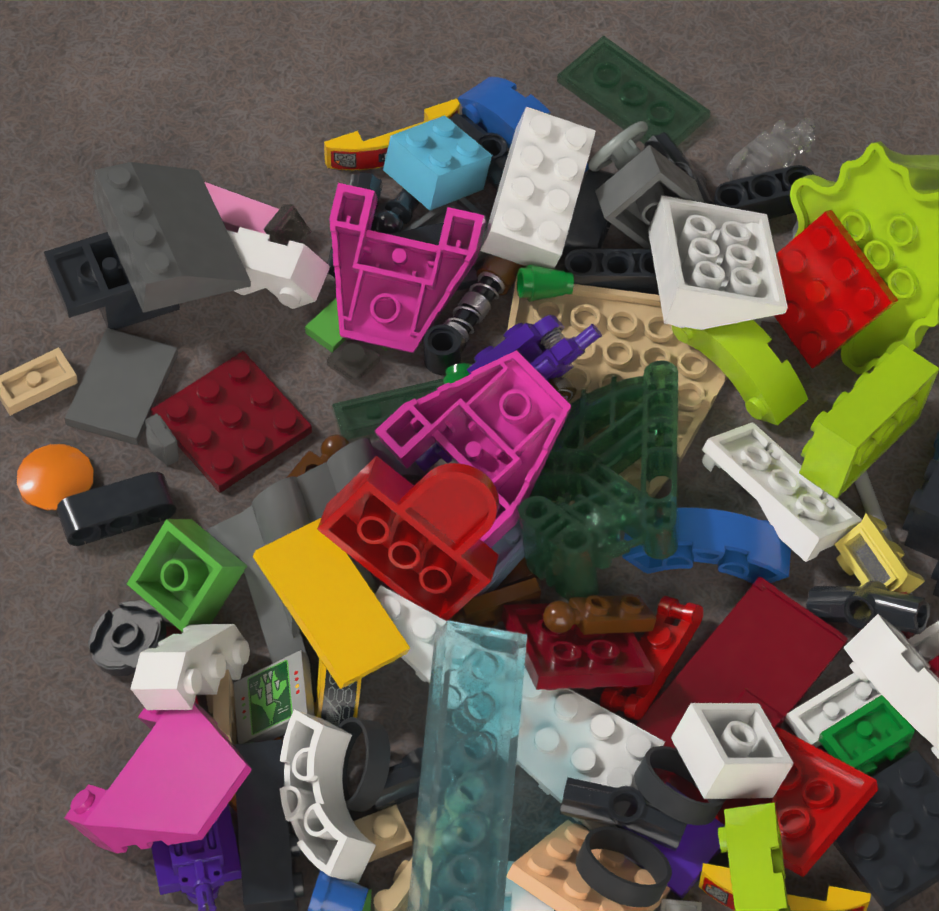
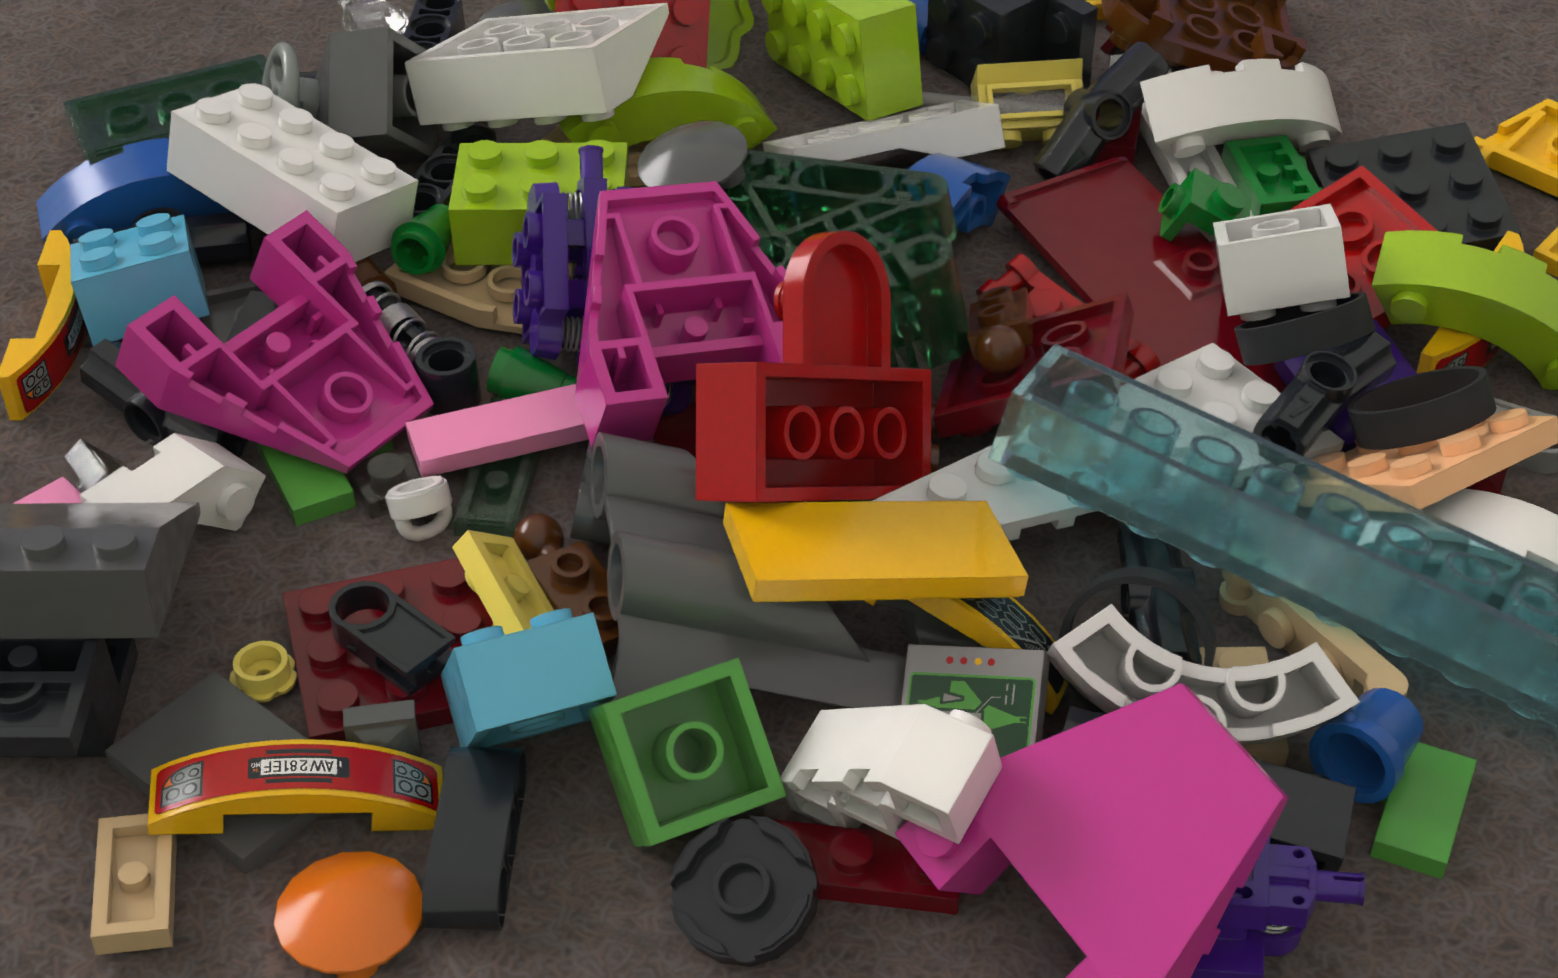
camera: 65 degrees left, 15 degrees down
(109, 417) = (293, 778): none -> slope
(183, 361) = (263, 671): none -> light yellow plate
(199, 483) = (527, 679): none -> medium azure brick
(217, 418) = (399, 645): none -> black piece
(280, 451) = (501, 579): none -> light yellow plate
(333, 382) = (419, 499): none -> white tile
(391, 379) = (496, 431): none -> bright pink tile
(602, 299) = (494, 187): none -> lime brick
(650, 388) = (695, 154): none -> dark grey dish
(796, 701) = (1200, 202): none -> green bracket

